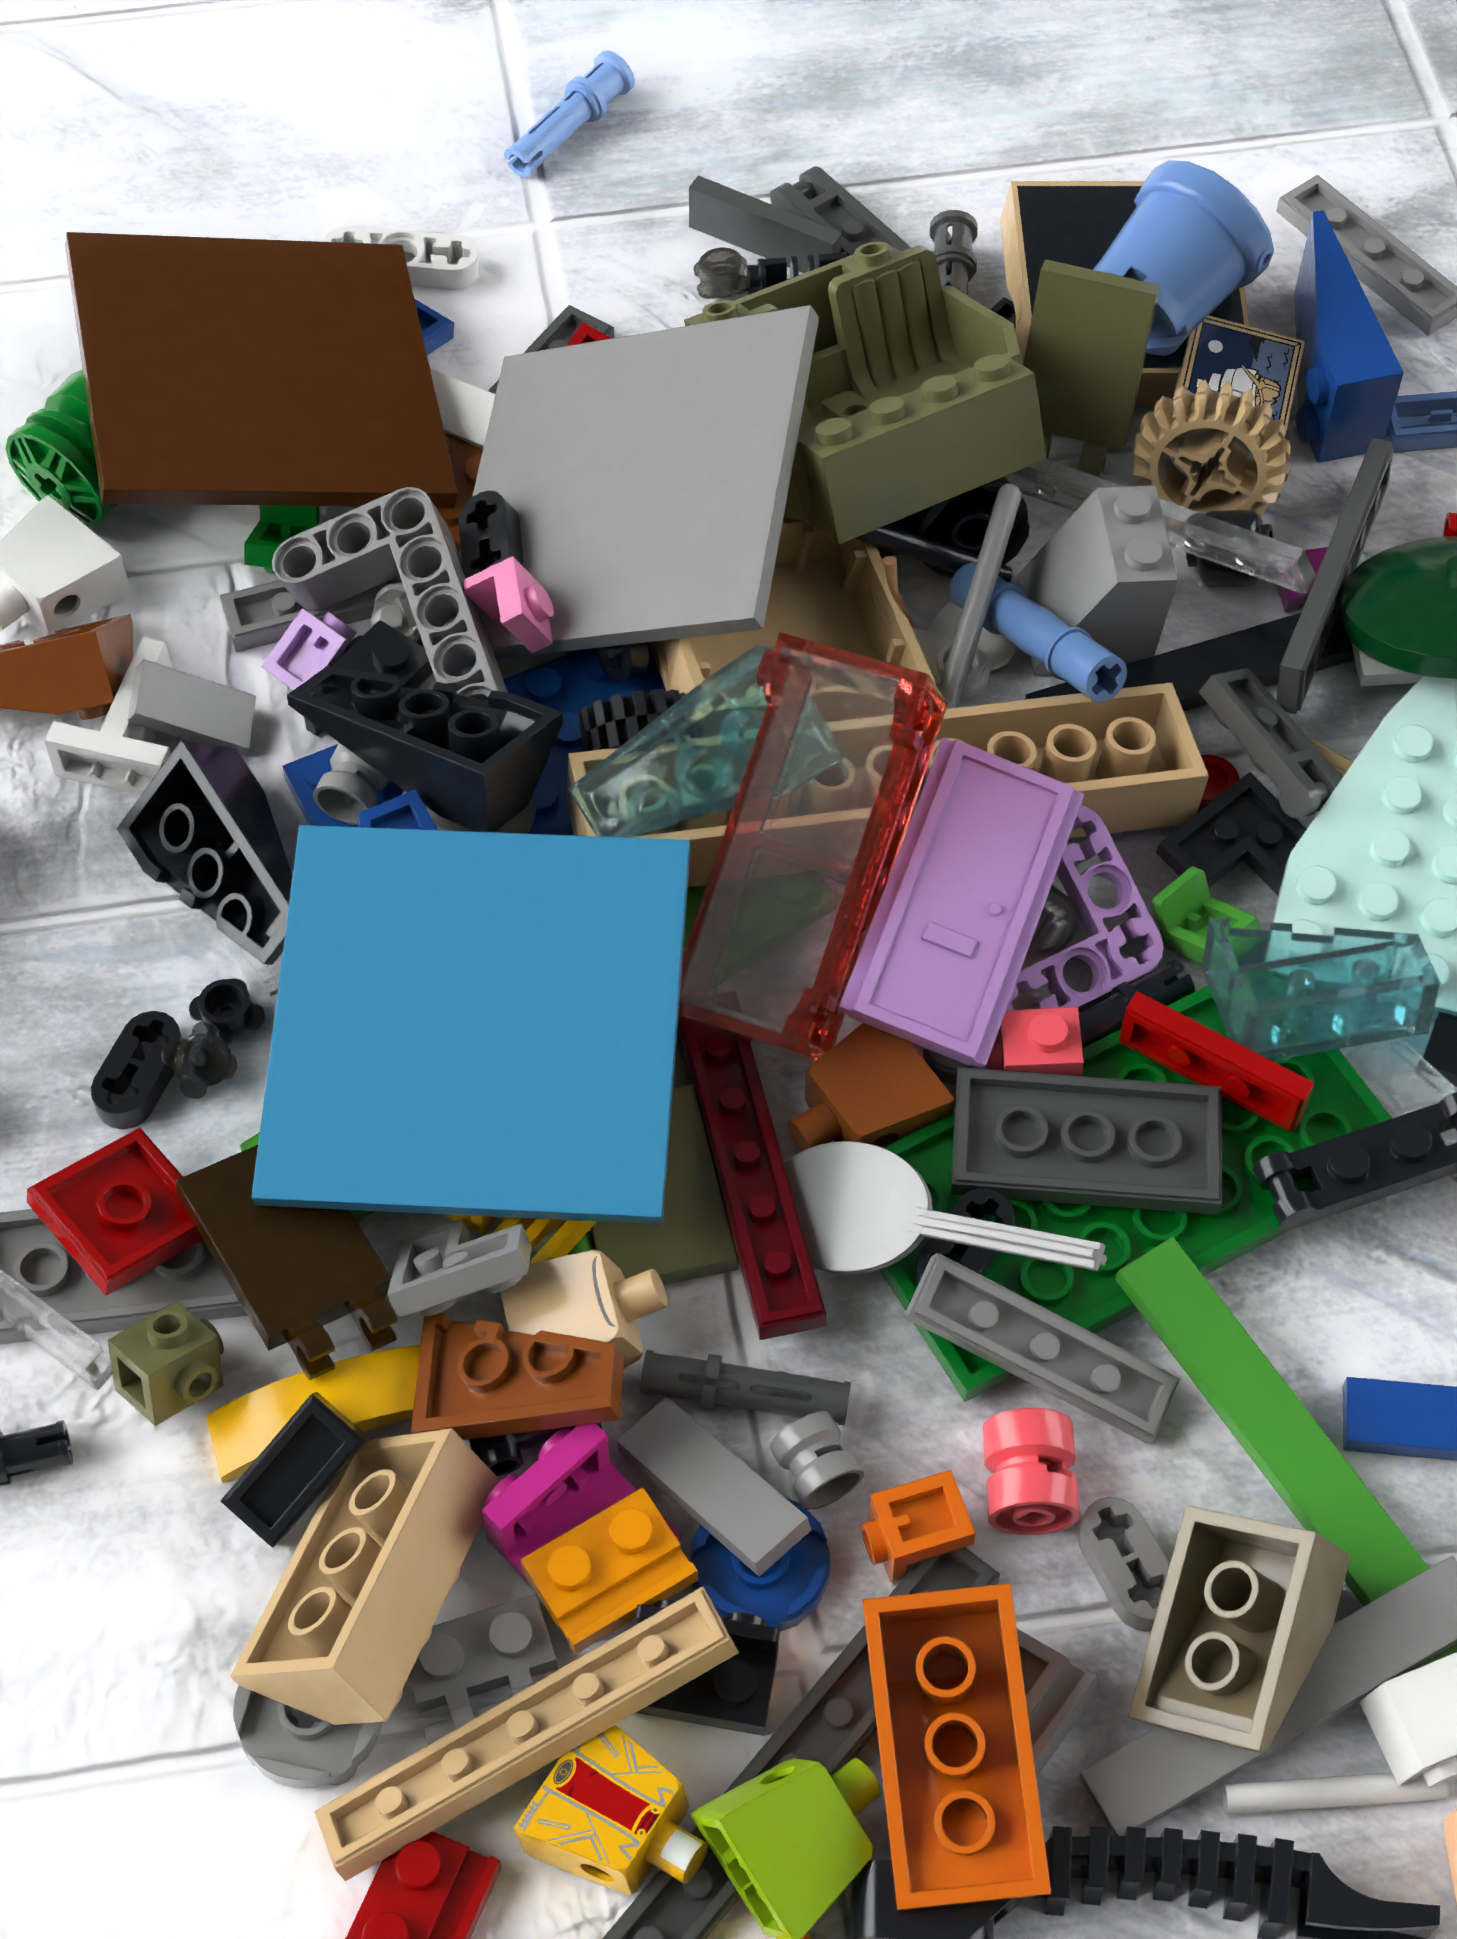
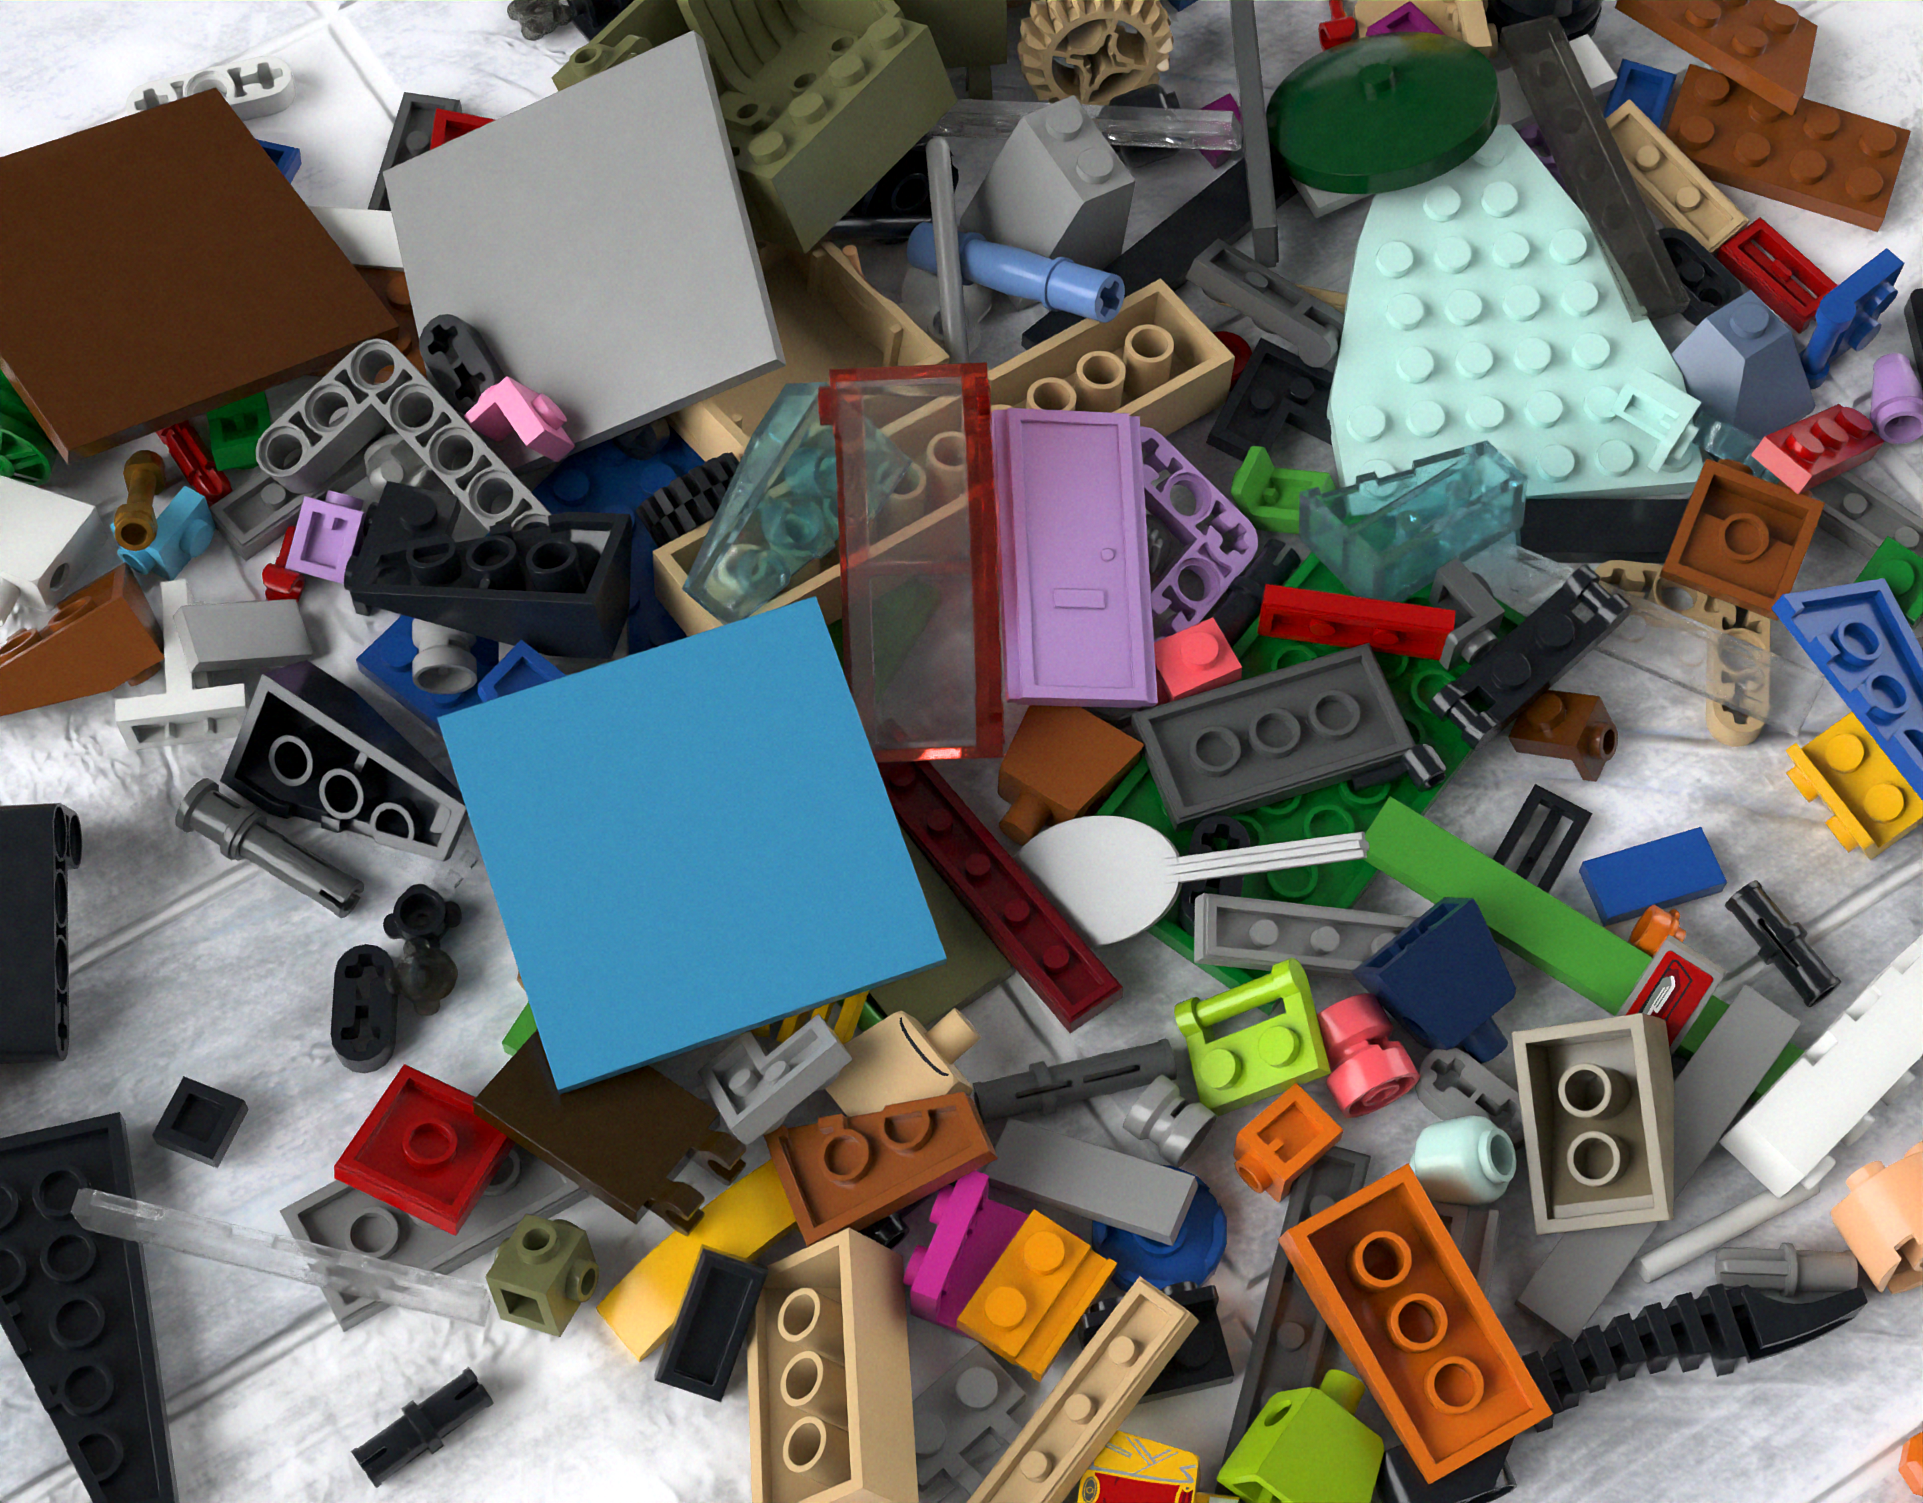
camera: 25 degrees left, 5 degrees up
(111, 880) = (246, 835): none -> dark grey pin
(144, 578) = (136, 520): none -> pearl gold bar
(176, 607) = (182, 533): none -> medium azure bracket
(230, 540) = (195, 461): none -> red axle
(254, 678) = (283, 582): none -> red hand
(932, 1434) = (1260, 1057): none -> lime plate
(1085, 1614) = (1464, 1161): none -> light aqua head
(1145, 1432) = (1444, 980): none -> dark blue torso
(1217, 1217) = (1419, 763): none -> black hand
(1335, 1094) = (1476, 615): none -> dark grey bracket
(1348, 1319) = (1559, 808): none -> black tile
(1374, 1859) = (1786, 1269): none -> light grey axle
(1376, 1531) = (1674, 988): none -> slope
(1392, 1244) = (1567, 728): none -> reddish brown bracket
(1392, 1476) = (1654, 928): none -> orange plate

